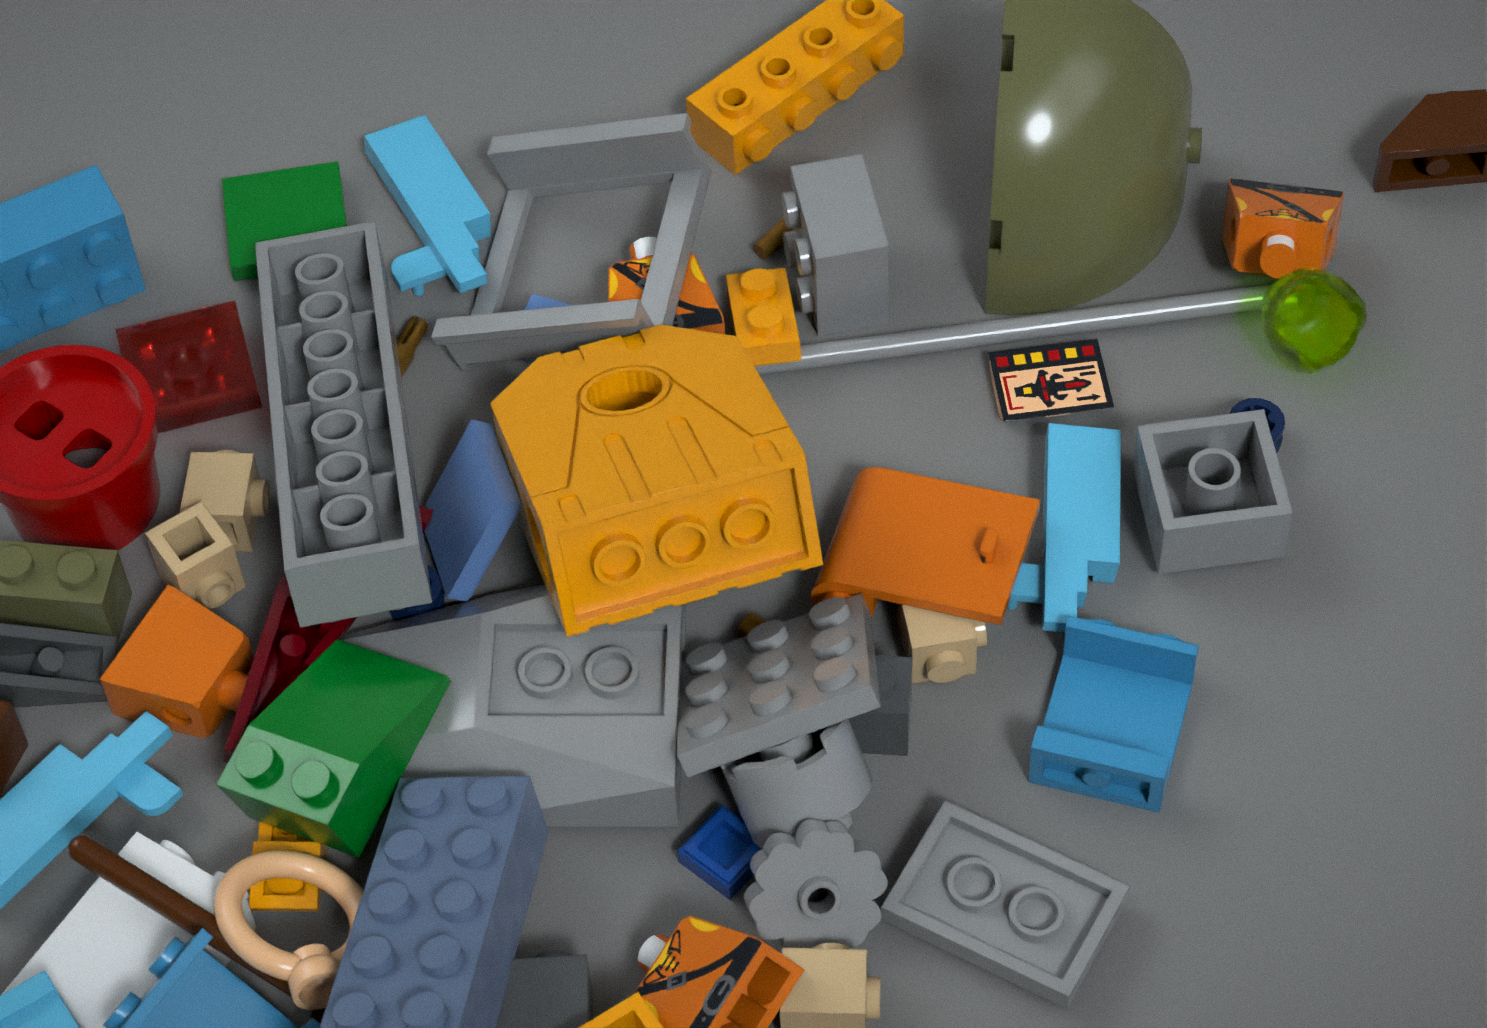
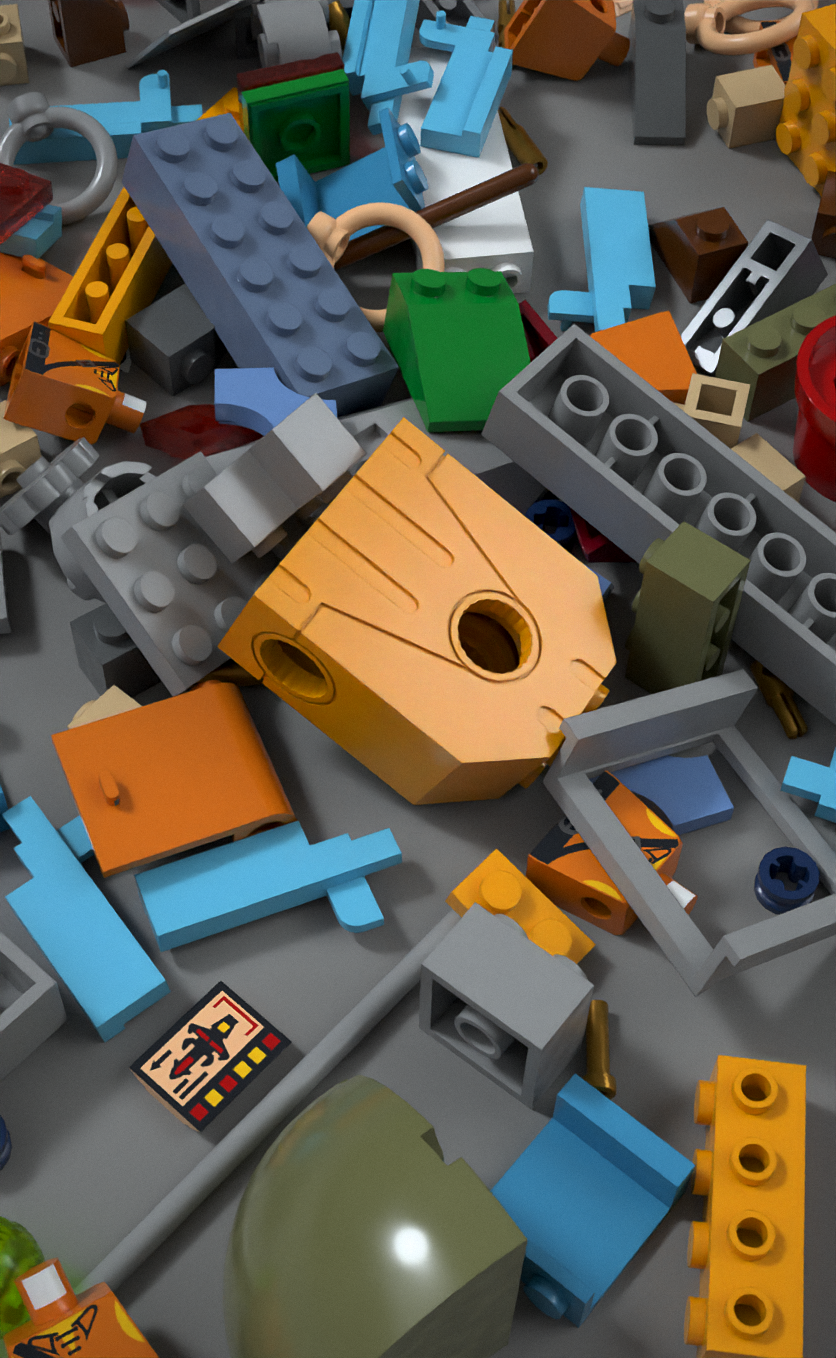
camera: 135 degrees right, 0 degrees up
(439, 365) = (684, 610): none -> olive brick
(550, 251) = (800, 870): none -> dark blue bush
(564, 742) = (255, 398): none -> medium blue tile
(616, 859) = (194, 430): none -> clear red wing
(654, 656) = (282, 474): none -> light grey brick
(865, 438) = (262, 878): none -> medium azure piece
(909, 156) = (588, 1199): none -> dark azure panel

